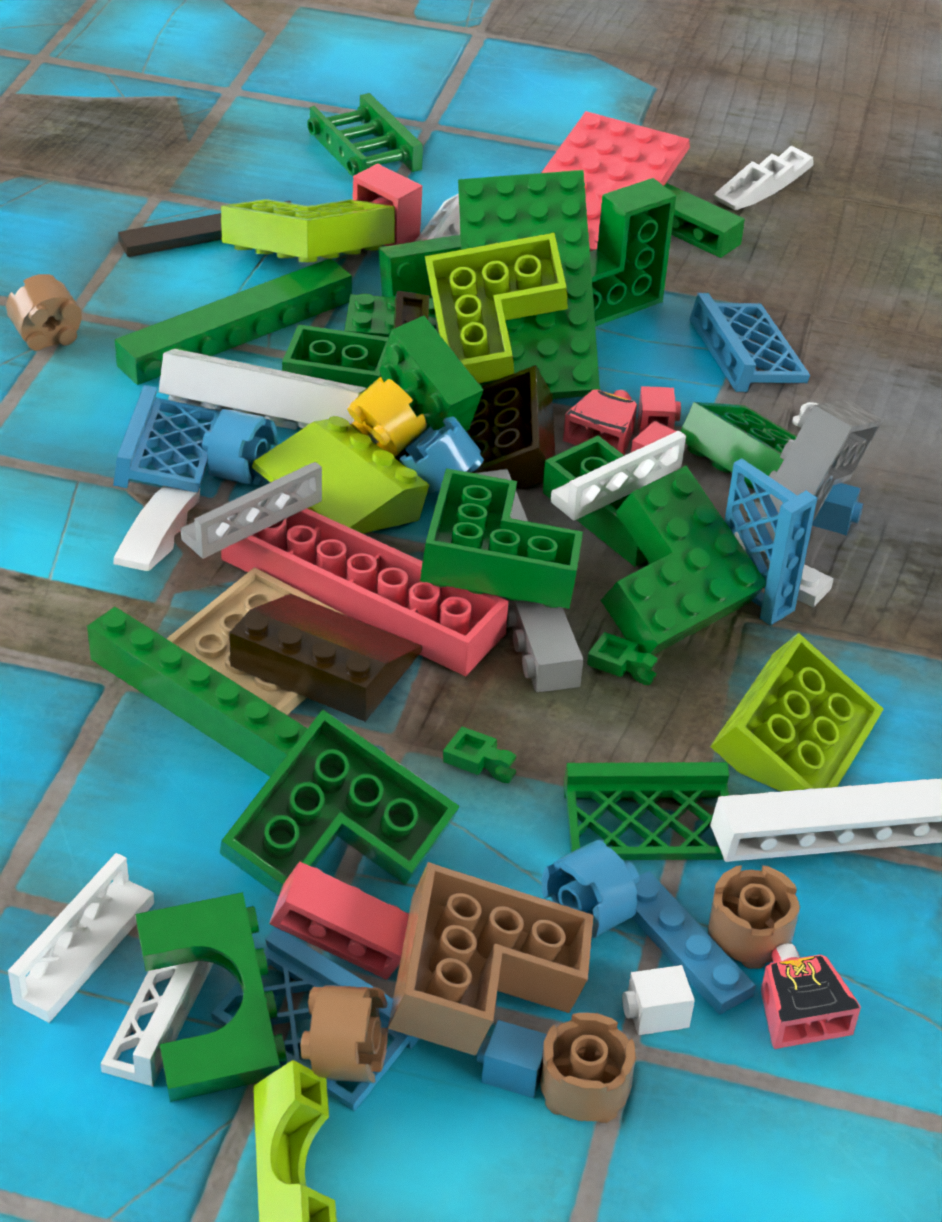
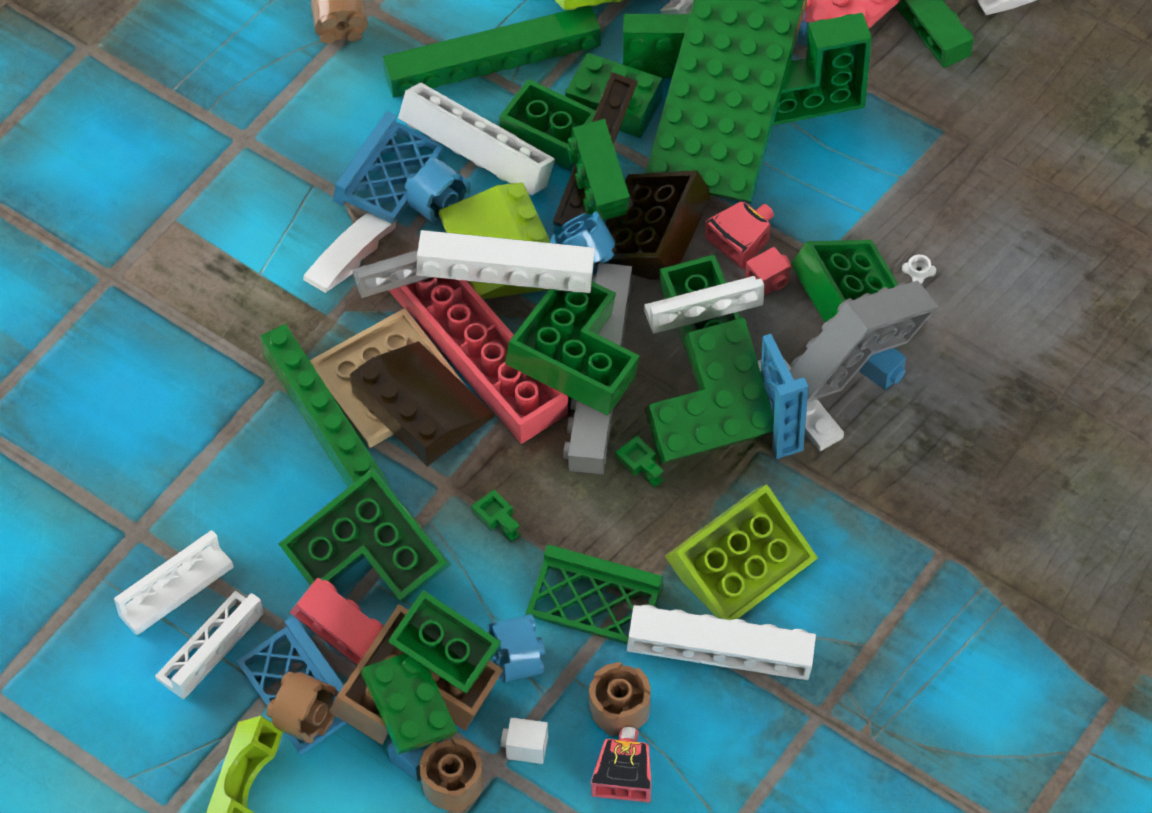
camera: 25 degrees right, 15 degrees up
(221, 934) = (245, 692): green arch -> none
(377, 467) = (505, 261): none -> white brick
(386, 416) = (552, 198): yellow brick -> none
(492, 284) = (669, 93): lime brick -> none
(502, 977) = (408, 702): none -> green plate
(520, 882) = (444, 642): none -> green slope
(658, 405) = (789, 232): coral brick -> none
(690, 945) = (569, 702): dark azure plate -> none
(731, 349) = (888, 166): dark azure fence -> none

